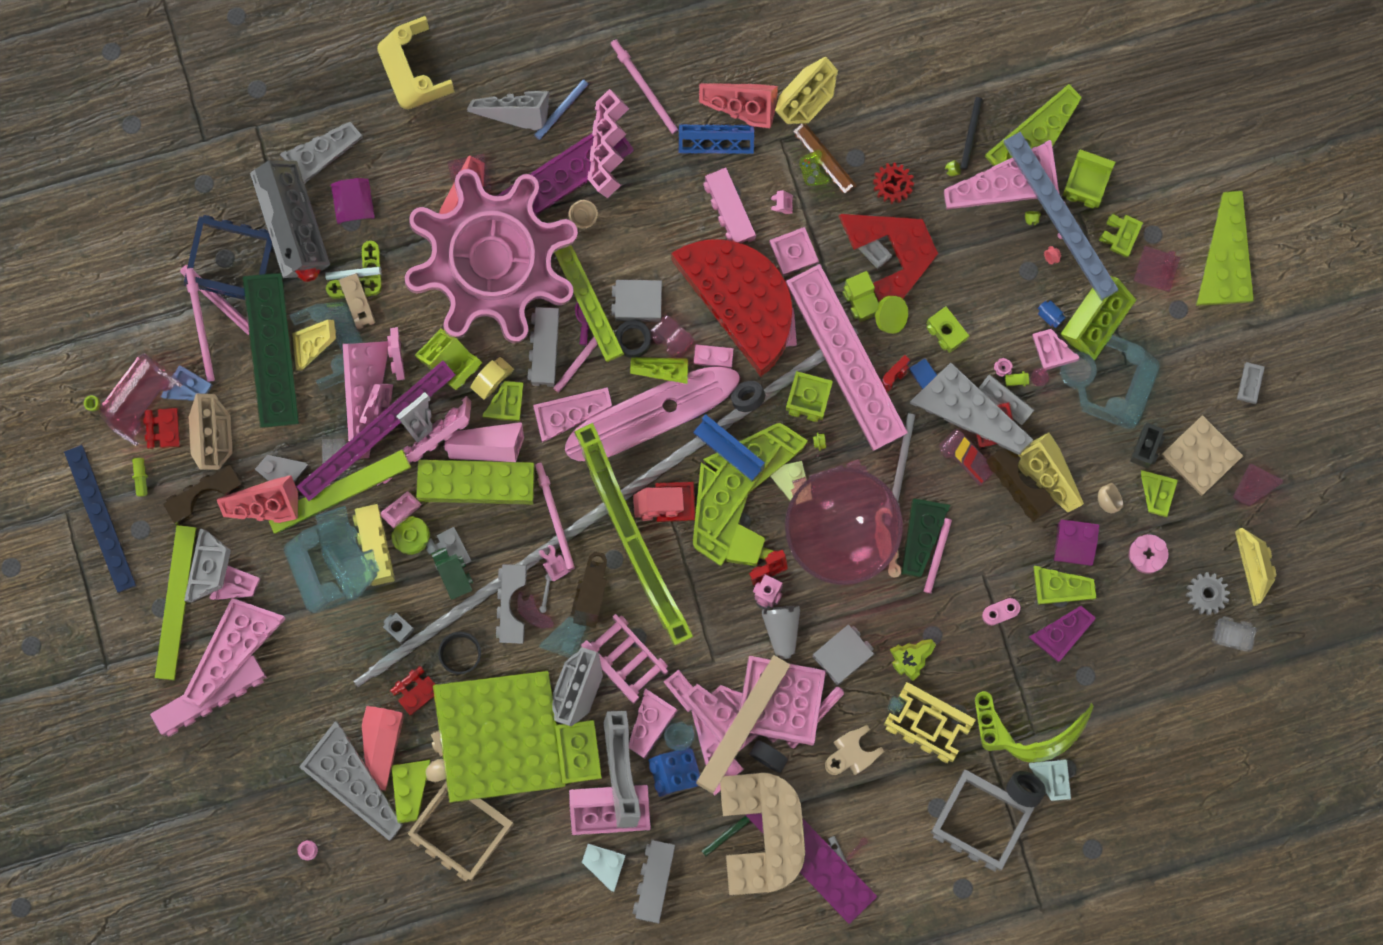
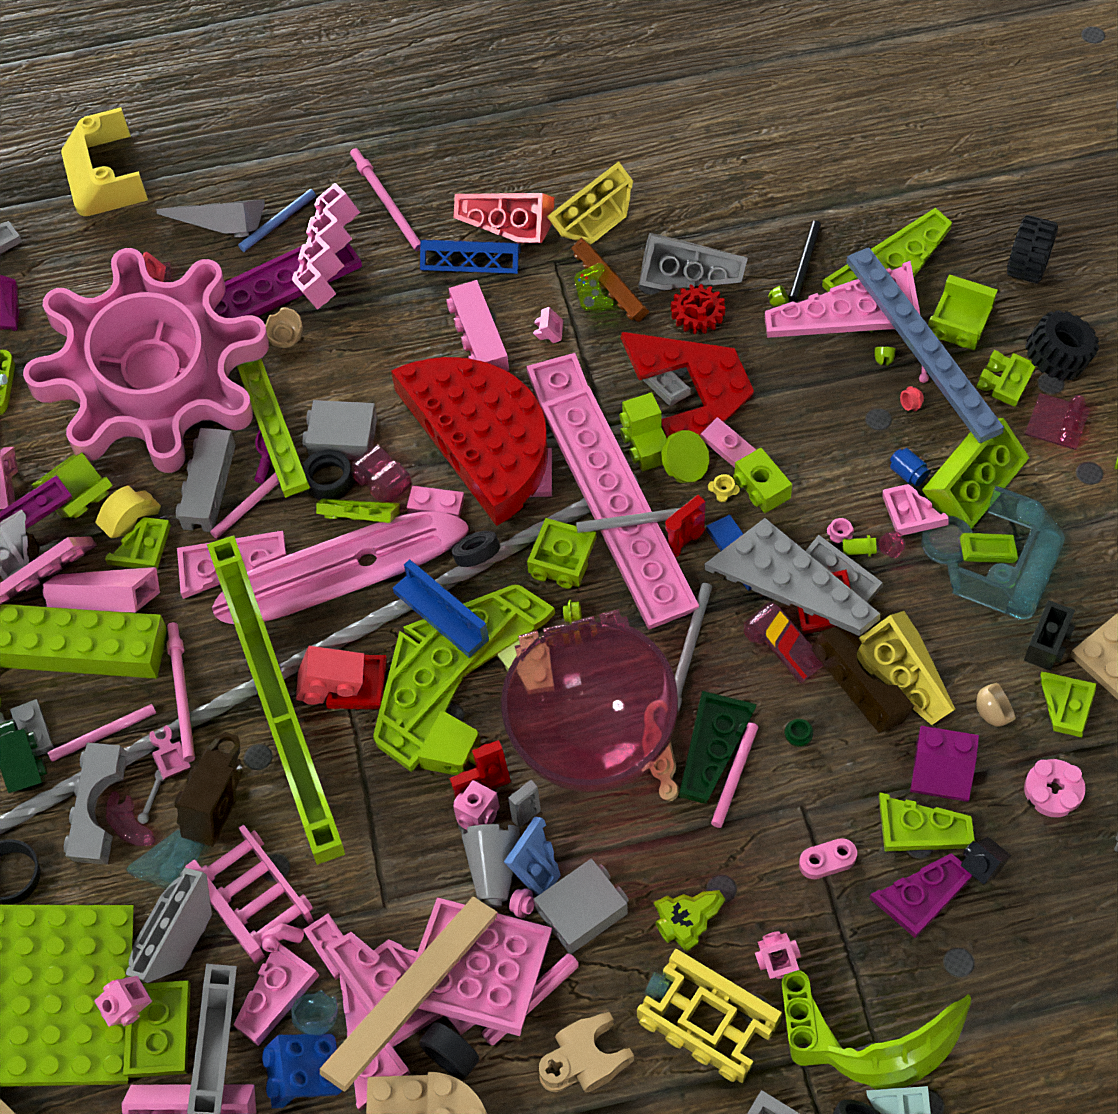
camera: 10 degrees right, 20 degrees down
(503, 548) = (101, 732): none -> bright pink bar
(557, 739) = (122, 1001): none -> bright pink brick
(648, 685) = (279, 932): none -> bright pink arm
(801, 588) = (524, 803): none -> light grey plate
(804, 654) = (522, 902): none -> bright pink plate
(811, 627) = (534, 858): none -> medium blue wing
(856, 371) = (622, 521): none -> light grey bar
(879, 141) = (679, 263): none -> light grey wedge
(919, 340) = (723, 481): none -> light yellow plate
(921, 299) = (726, 442): none -> bright pink plate
(971, 681) = (778, 965): none -> bright pink brick
(979, 523) = (798, 732): none -> dark green plate
(1102, 609) = (984, 859): none -> black brick
(1106, 376) = (988, 548): none -> lime tile
(1141, 126) = (1032, 249): none -> black tyre
(1170, 200) = (1062, 345): none -> black tyre

